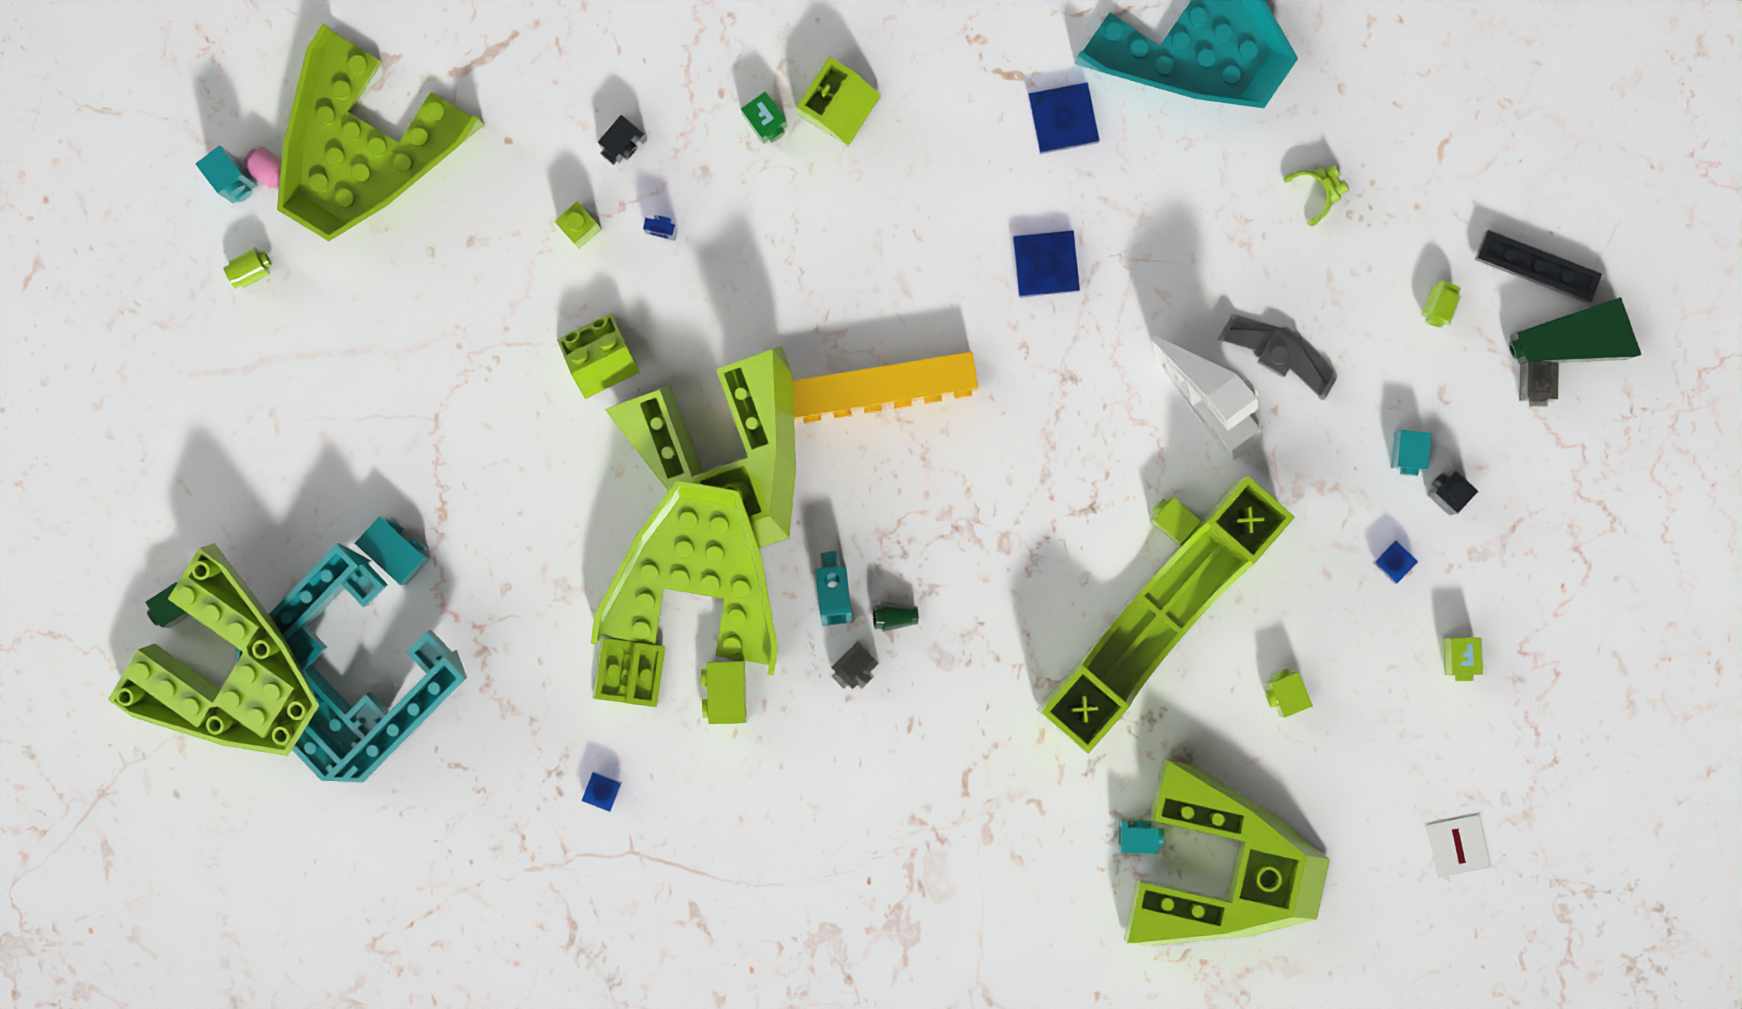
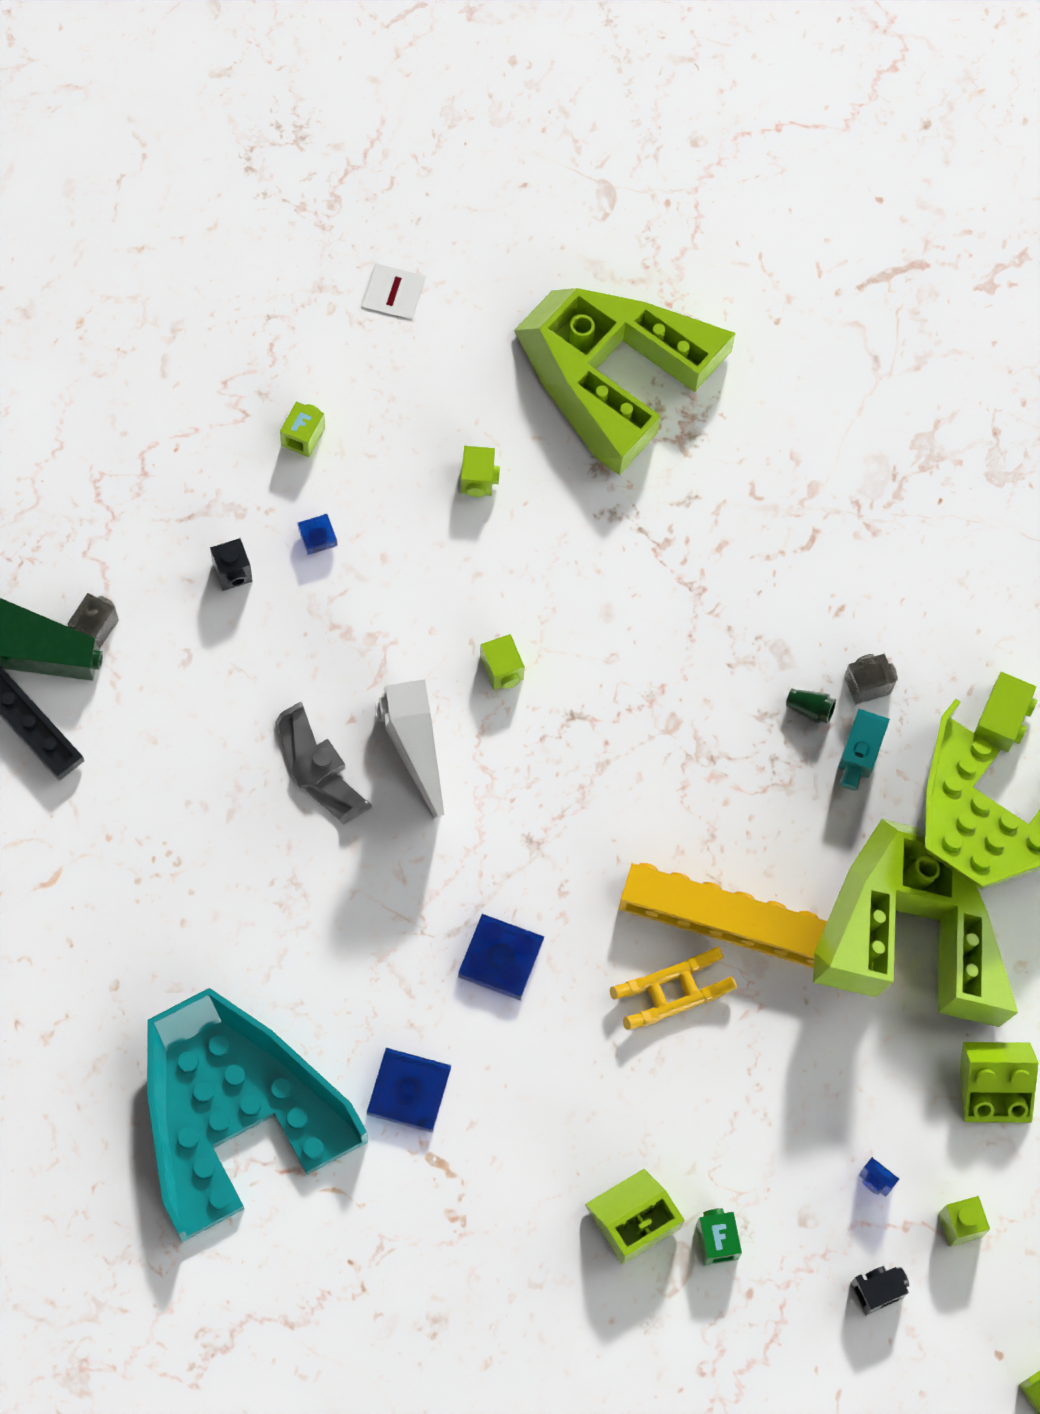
camera: 160 degrees left, 20 degrees down
(895, 285) = (683, 972): none -> yellow piece
(1139, 837) = (678, 418): teal brick -> none
(1163, 611) = (647, 550): lime arch -> none
(1333, 187) = (181, 897): lime helmet -> none
(1411, 452) = (247, 618): teal brick -> none
(1441, 304) = (141, 732): lime brick -> none

